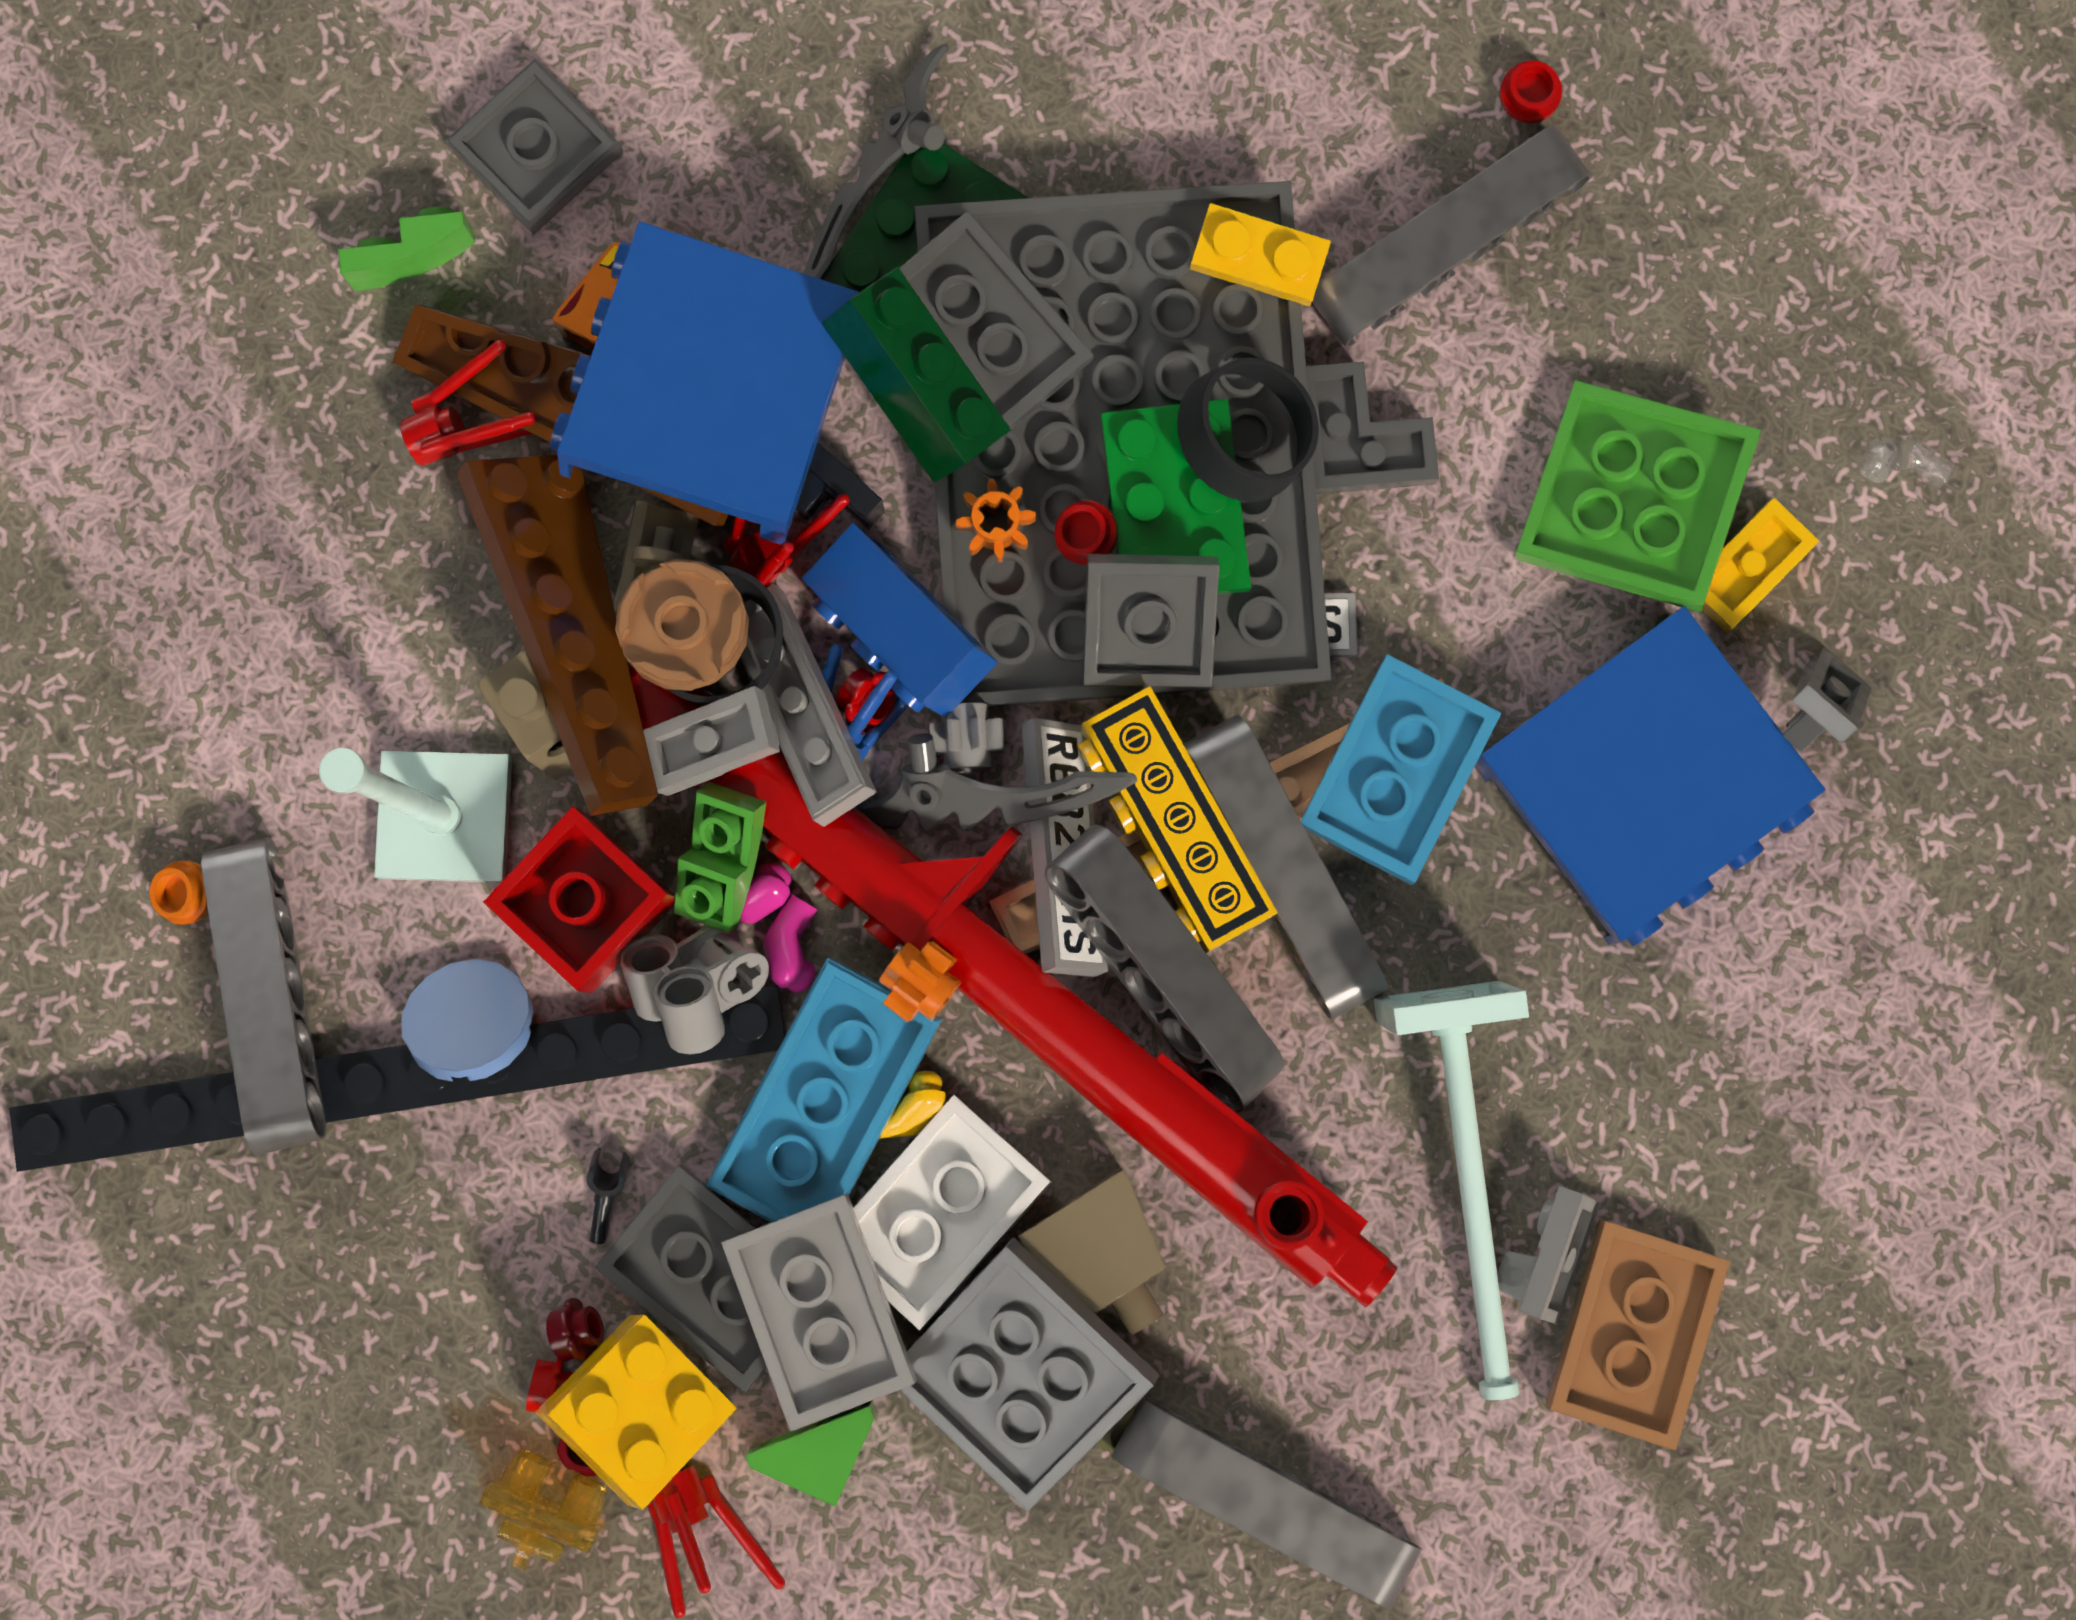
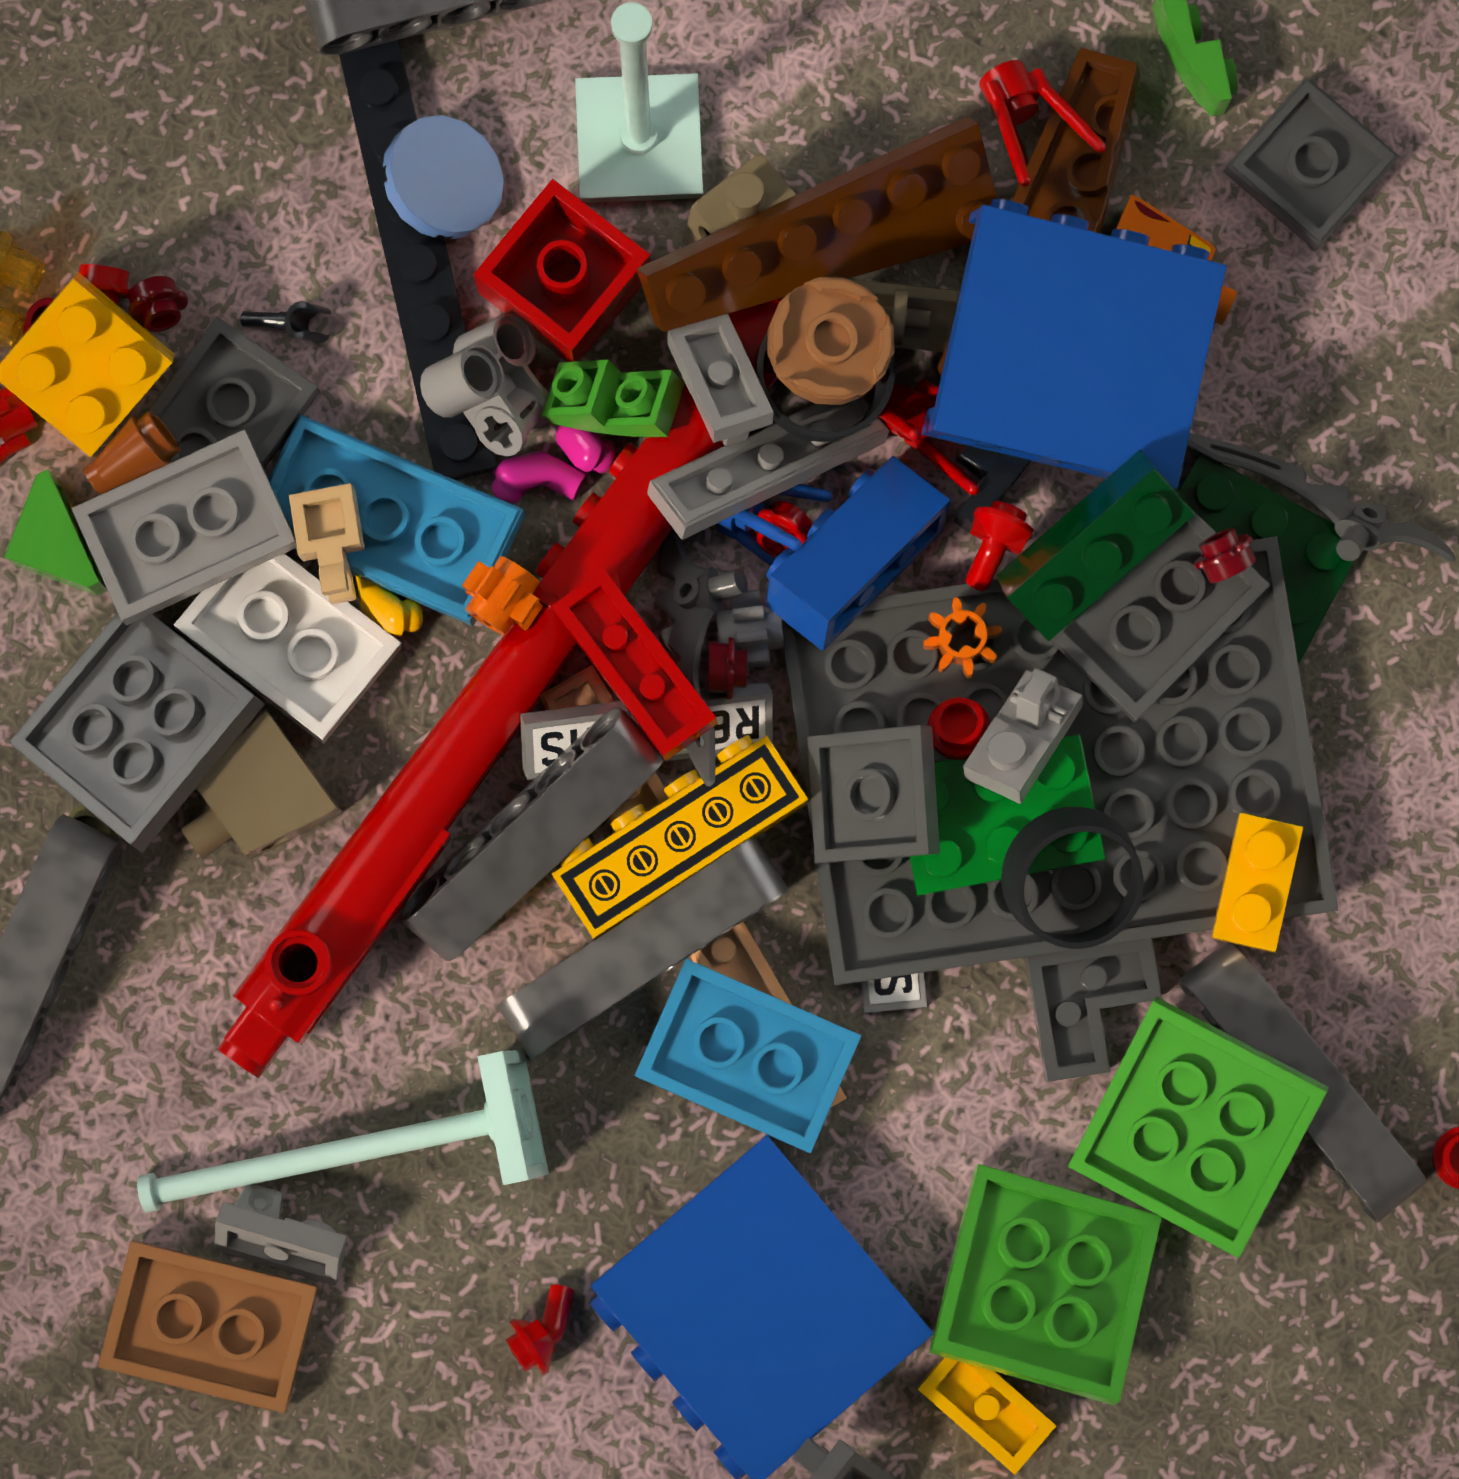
camera: 85 degrees right, 0 degrees up
(736, 1363) = (134, 451): none -> dark orange cone
(833, 1161) = (325, 530): none -> tan plate
(890, 471) = (1001, 530): none -> red plate
(937, 246) = (1225, 555): none -> dark red plate
(1003, 848) = (634, 664): none -> red plate
(1008, 760) = (726, 668): none -> dark red plate
(1101, 466) = (1023, 736): none -> light grey hinge
(1494, 334) = (1198, 1127): none -> bright green plate
(1668, 1004) = (536, 1341): none -> red plate

